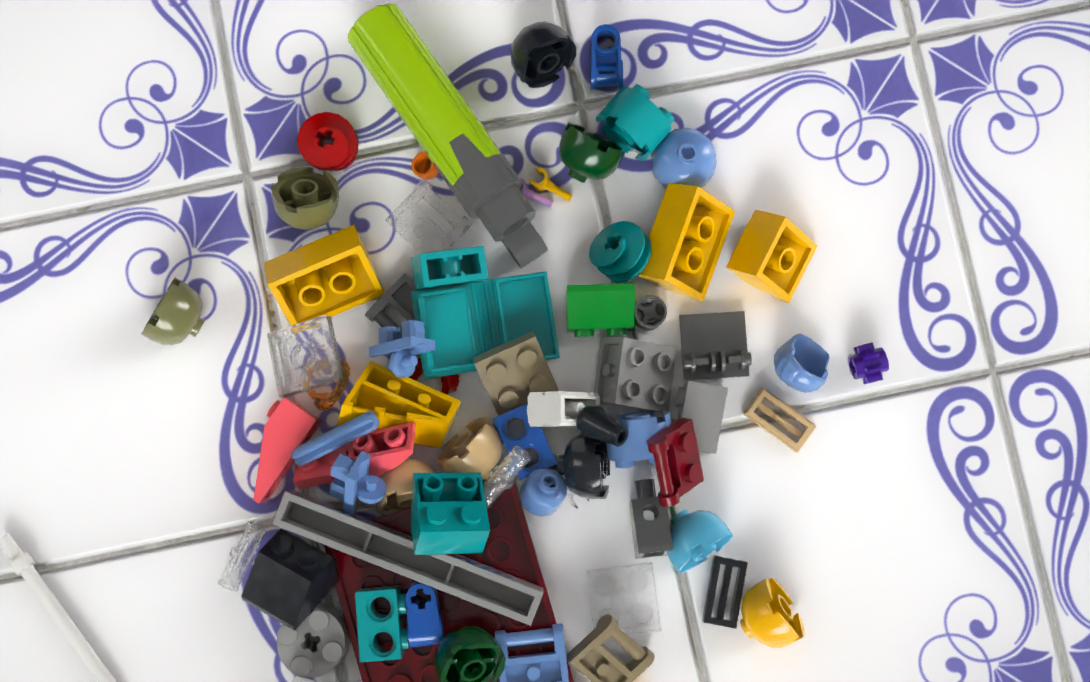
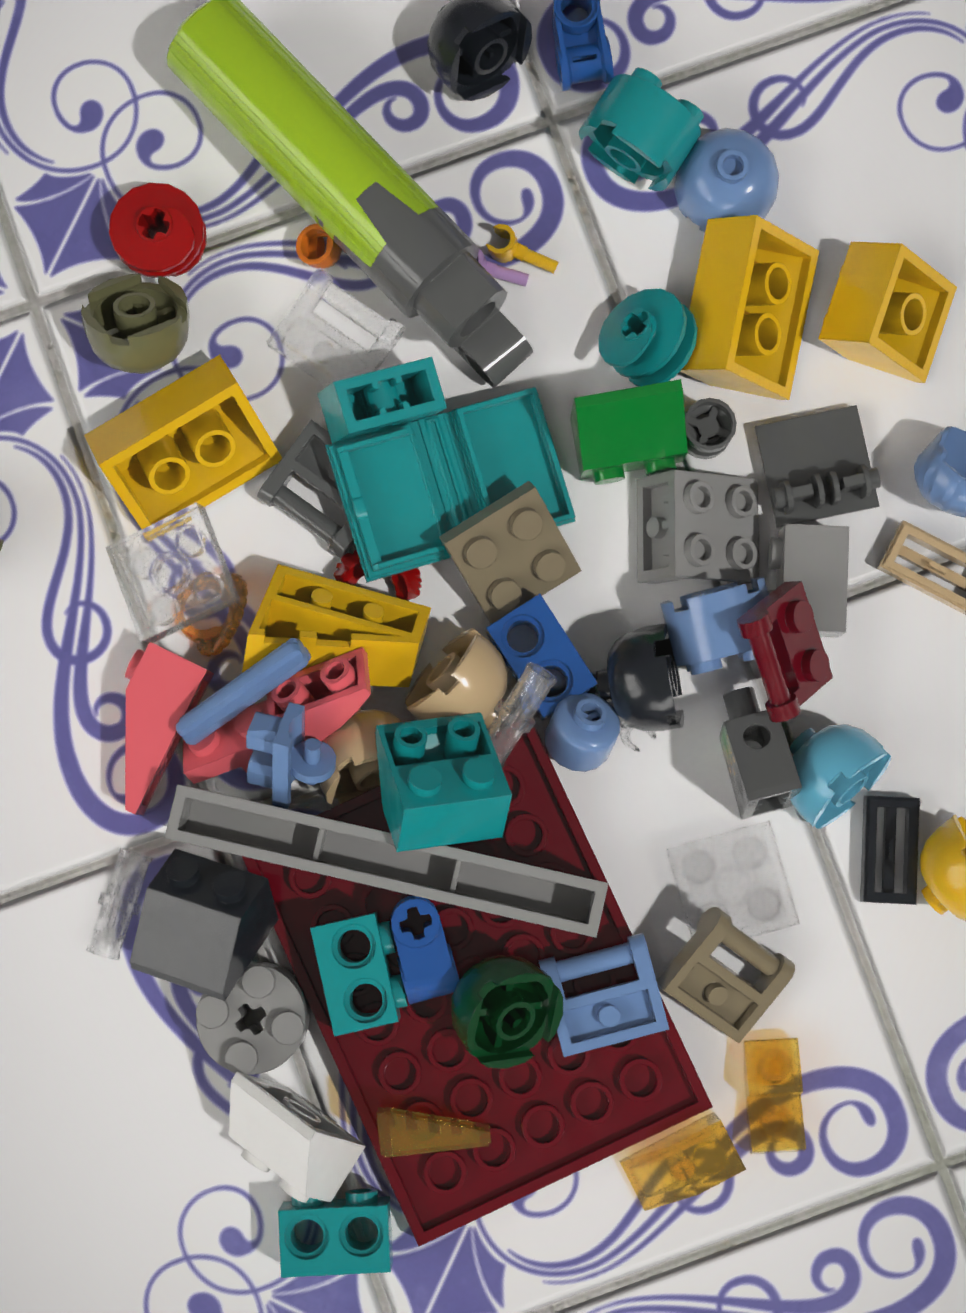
camera: 10 degrees left, 0 degrees up
(402, 350) = (329, 540): medium blue hips -> none
(558, 407) = (596, 596): white brick -> none
(588, 154) = (574, 192): dark green cylinder -> none
(601, 426) = (658, 610): black cone -> none

